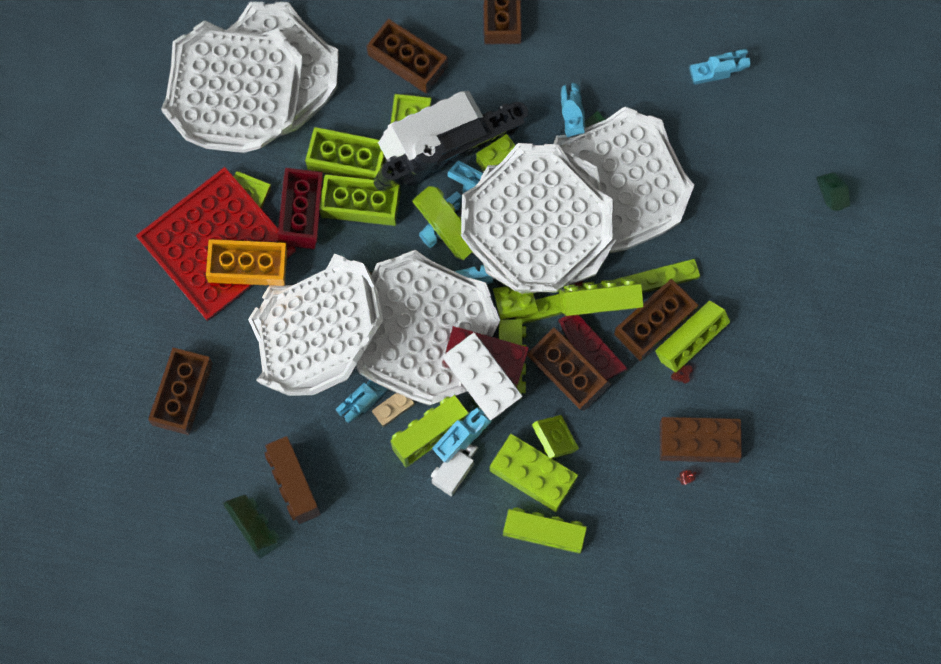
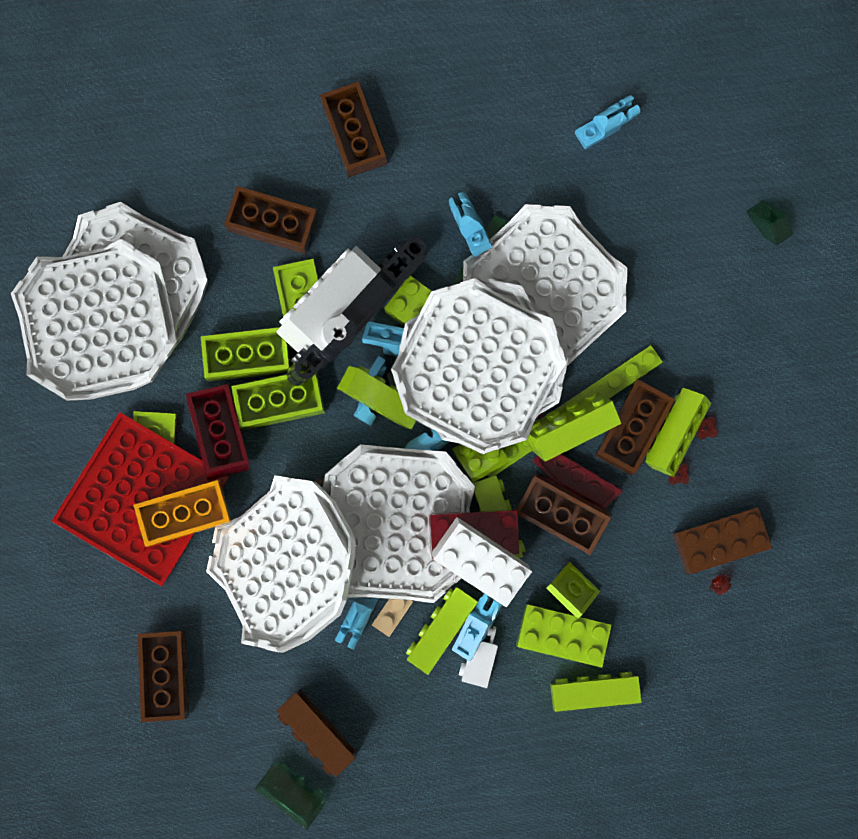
camera: 20 degrees left, 10 degrees up
(714, 346) = (702, 433): none -> clear red plate

